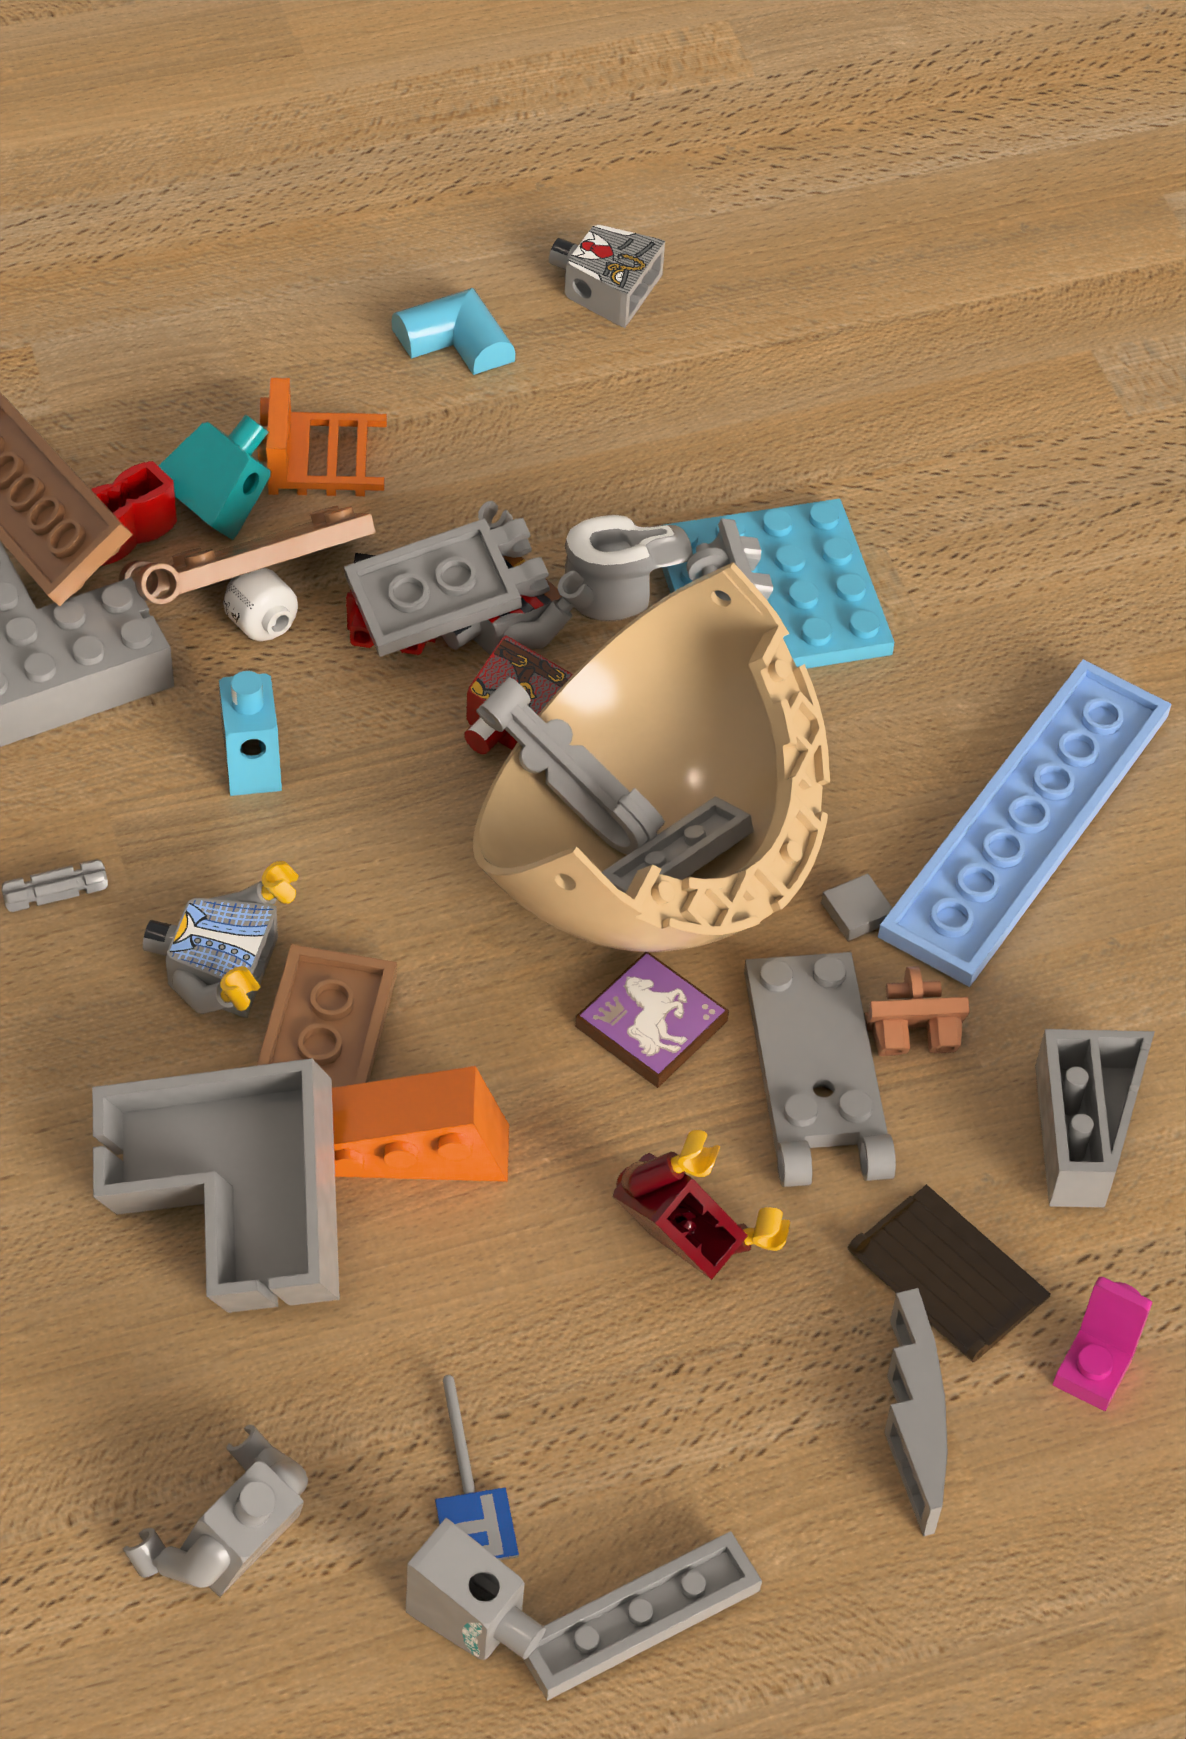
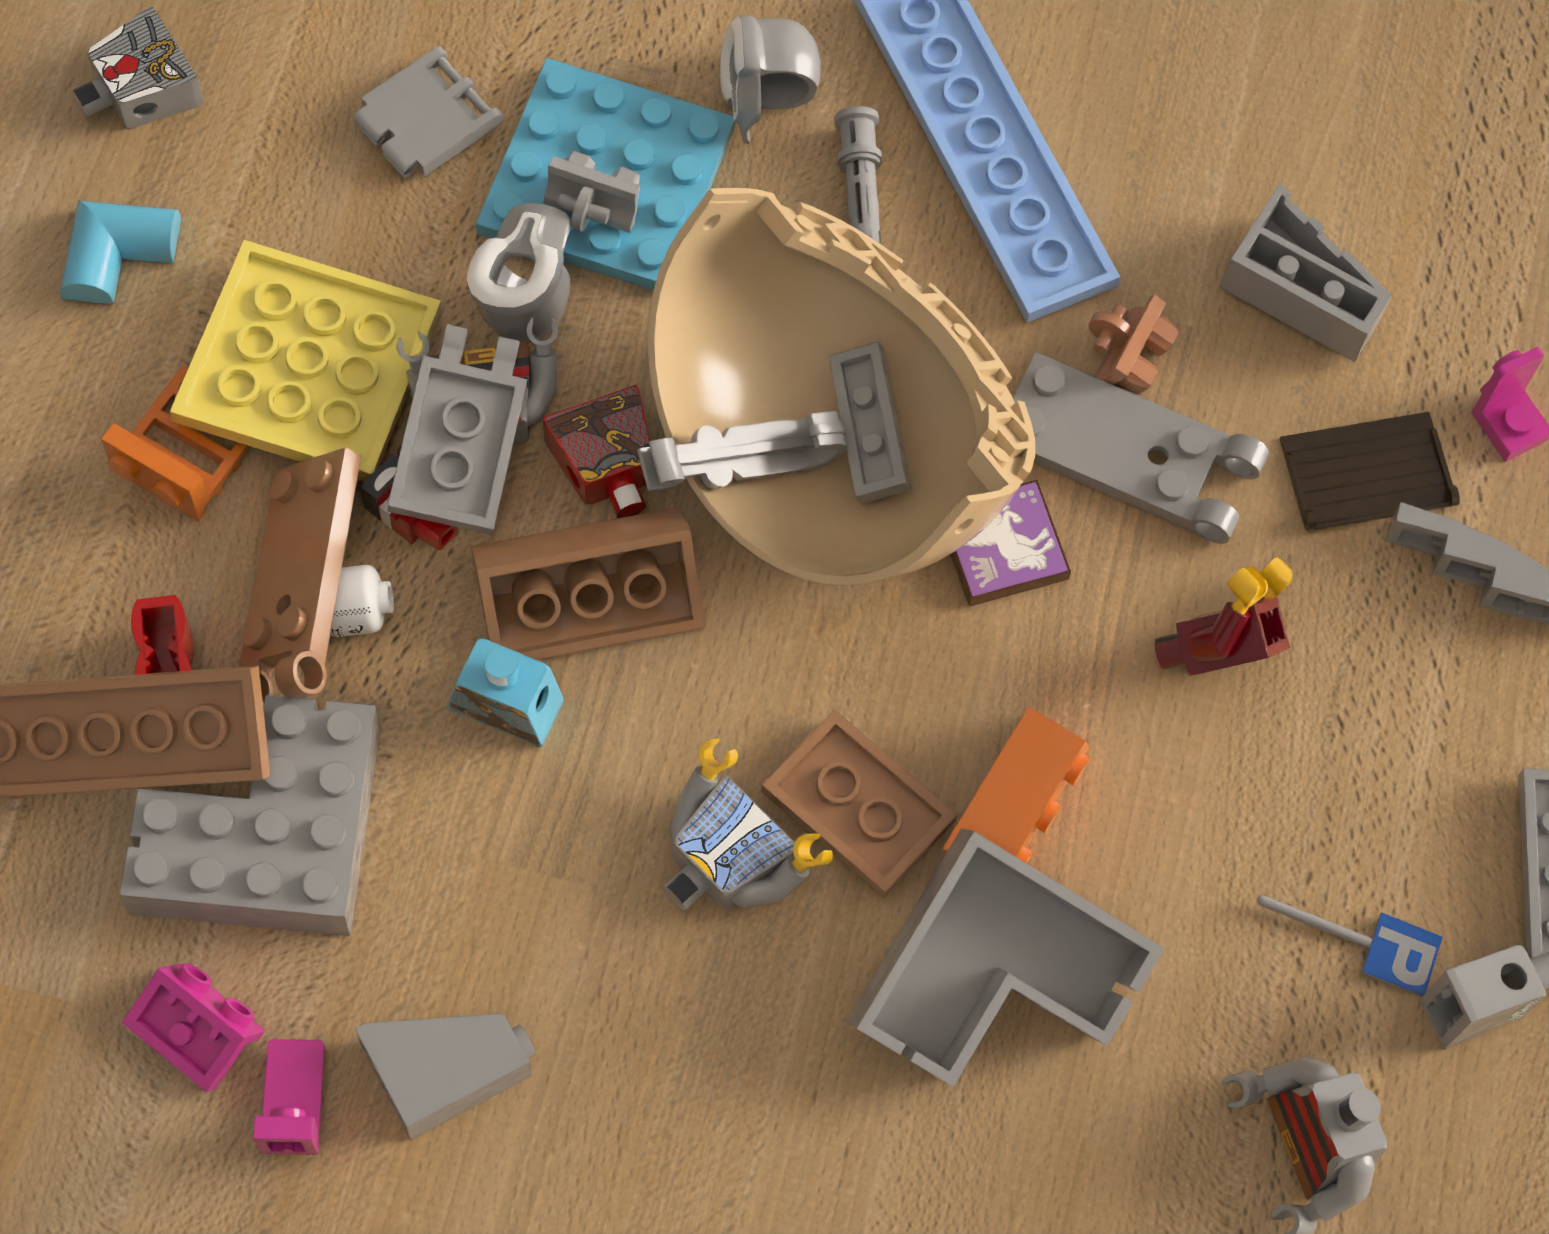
camera: 60 degrees left, 15 degrees up
(54, 885) = (558, 950): light grey axle -> none
(219, 474) = (175, 549): teal torso -> none
(386, 746) = (590, 585): none -> medium nougat slope
(438, 462) = (304, 359): none -> light yellow plate
(723, 450) = (423, 116): none -> light grey plate
(856, 906) = (991, 315): light grey tile -> none
(925, 744) = (859, 161): none -> light grey pin
(952, 632) = (767, 67): none -> light grey piece

